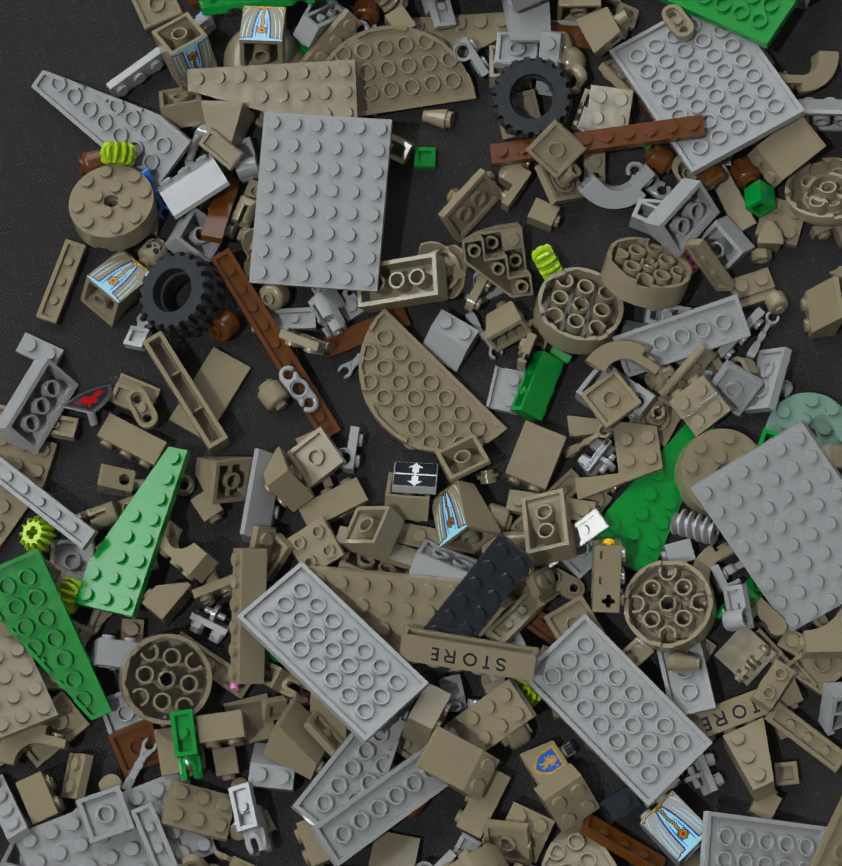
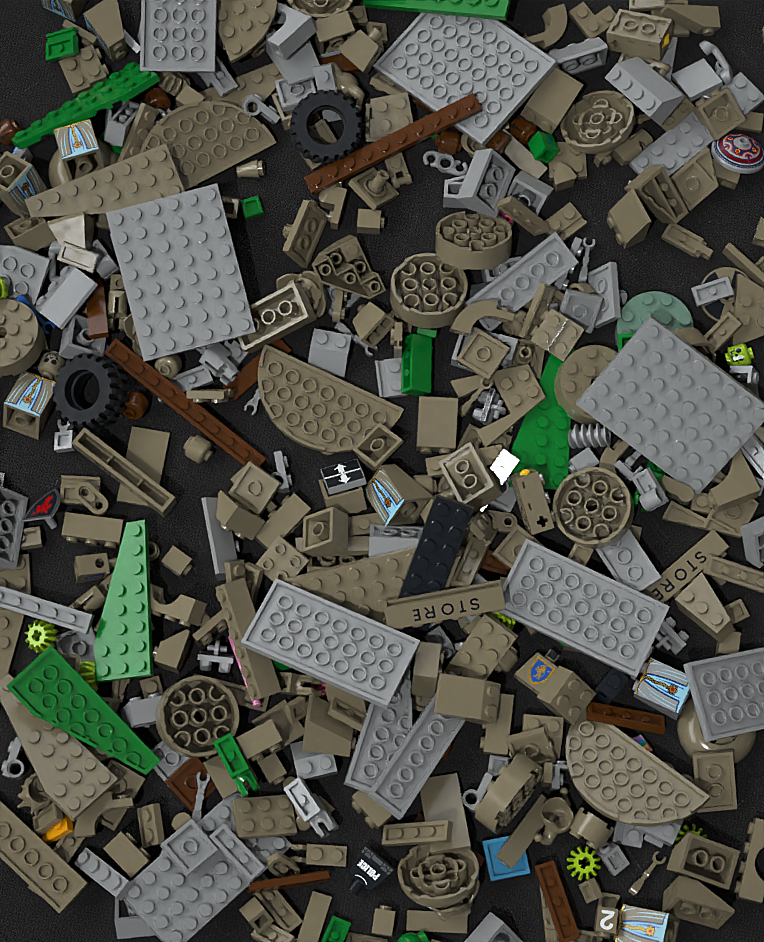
camera: 25 degrees left, 0 degrees up
(224, 477) = (183, 532): dark tan slope -> none
(289, 383) = (227, 436): light grey piece -> none
(487, 477) = (402, 455): dark tan plate -> none
(546, 261) = (386, 258): lime gear -> none
(555, 148) = (361, 162): dark tan tile -> none
(616, 196) = (426, 184): light grey arch -> none
(679, 23) = (424, 24): dark tan plate -> none
(682, 662) = (620, 550): dark tan cone -> none
(745, 655) = (668, 526): dark tan hinge -> none
(761, 255) = (561, 194): dark tan tile -> none
(772, 685) = (700, 543): dark tan brick -> none
(776, 302) = (587, 228): dark tan piece -> none

